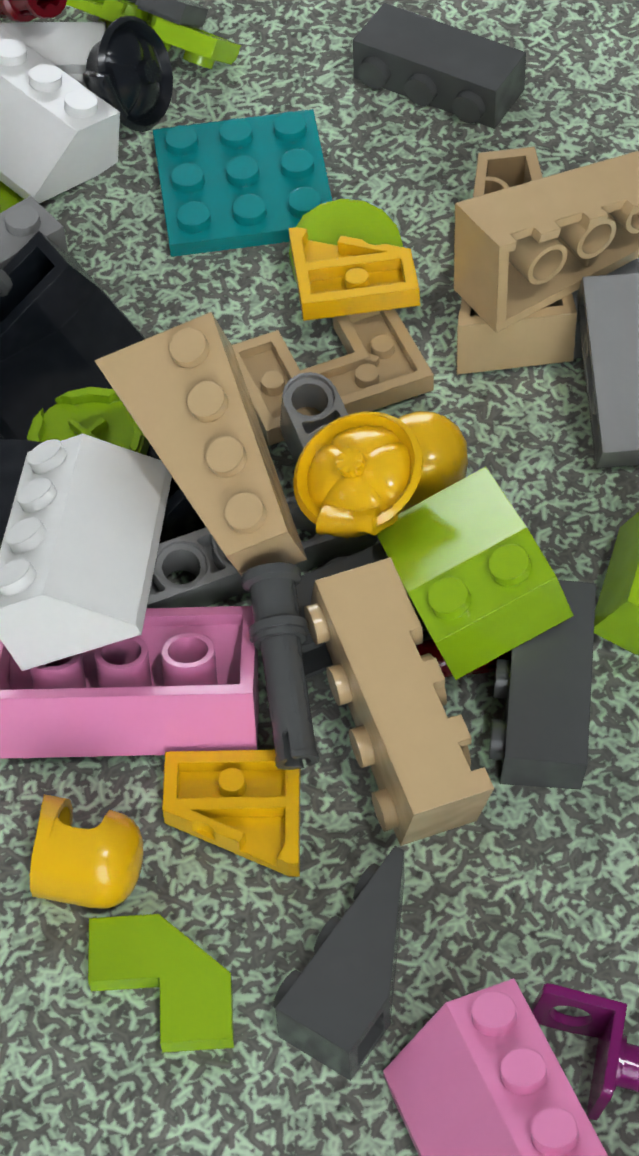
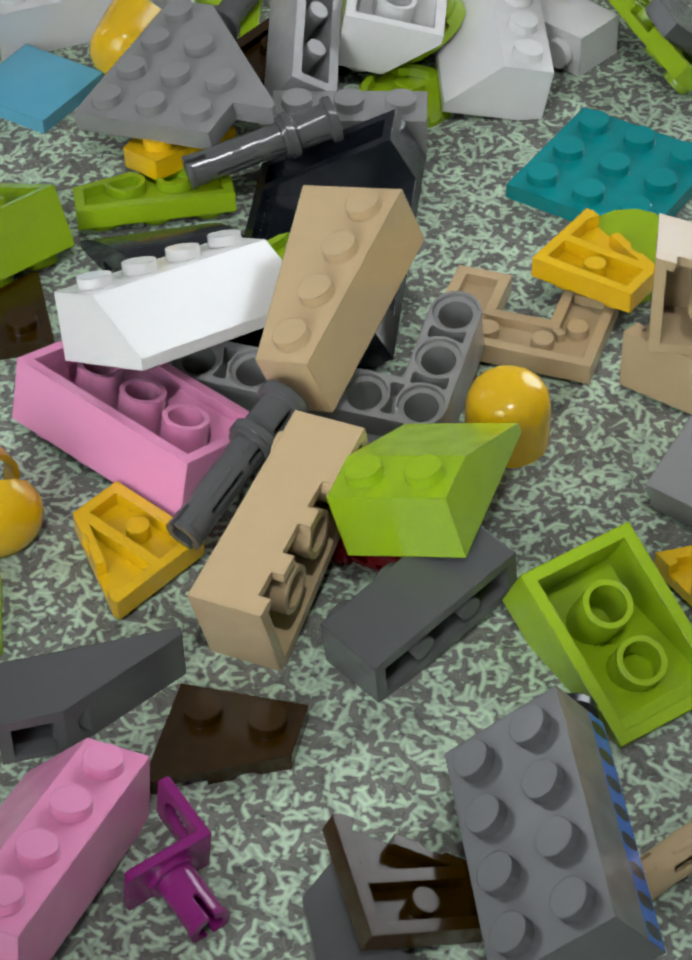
camera: 40 degrees right, 10 degrees down
(131, 72) = (600, 57): black piece -> none
(357, 474) = (418, 375): yellow piece -> none
(505, 910) = (225, 736): none -> dark brown wing

